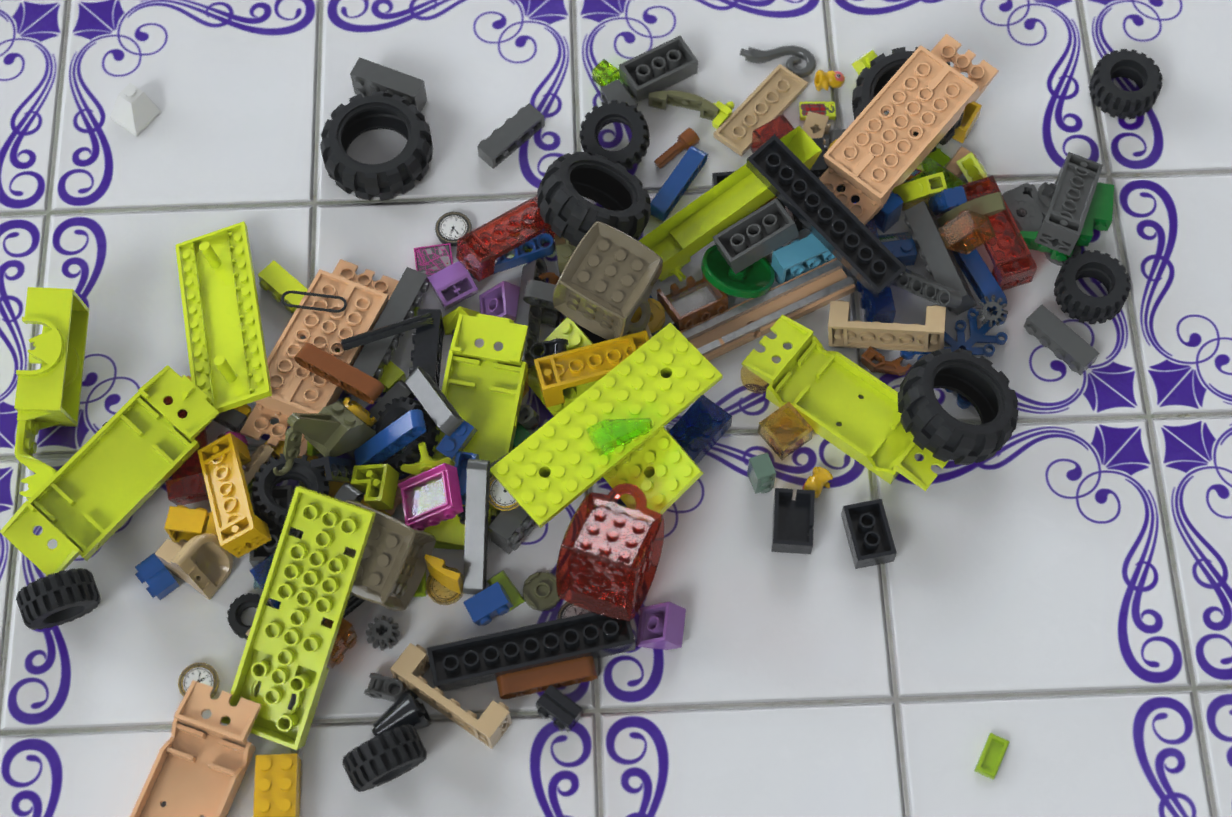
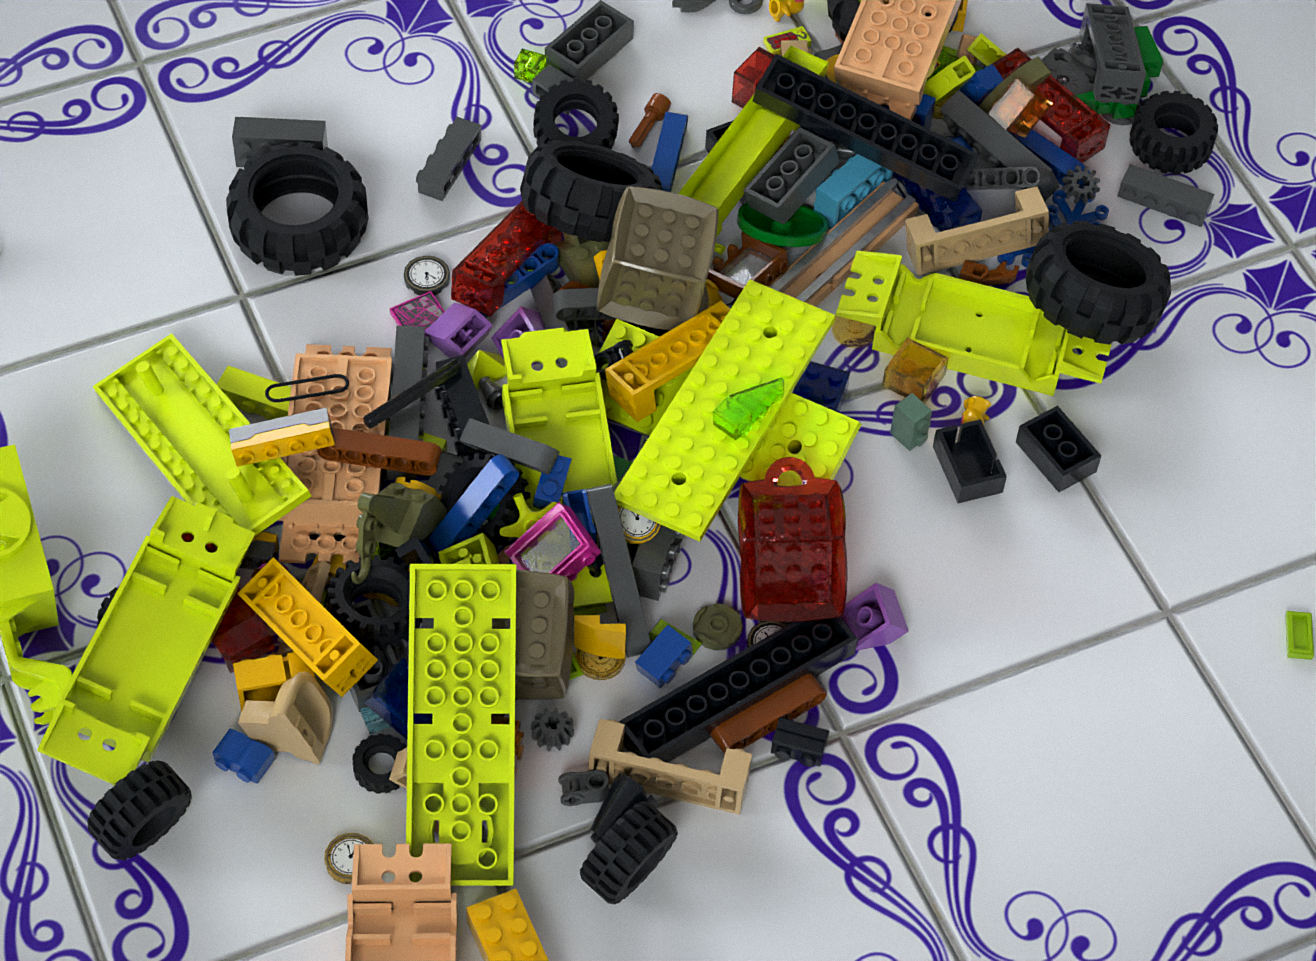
camera: 25 degrees left, 10 degrees down
(269, 340) = (281, 437): none -> yellow piece
(528, 417) = (619, 442): dark grey rock -> none
(685, 100) = (636, 68): olive slope -> none
(724, 113) = (683, 69): neon yellow piece -> none
(762, 106) = (722, 54): tan plate -> none

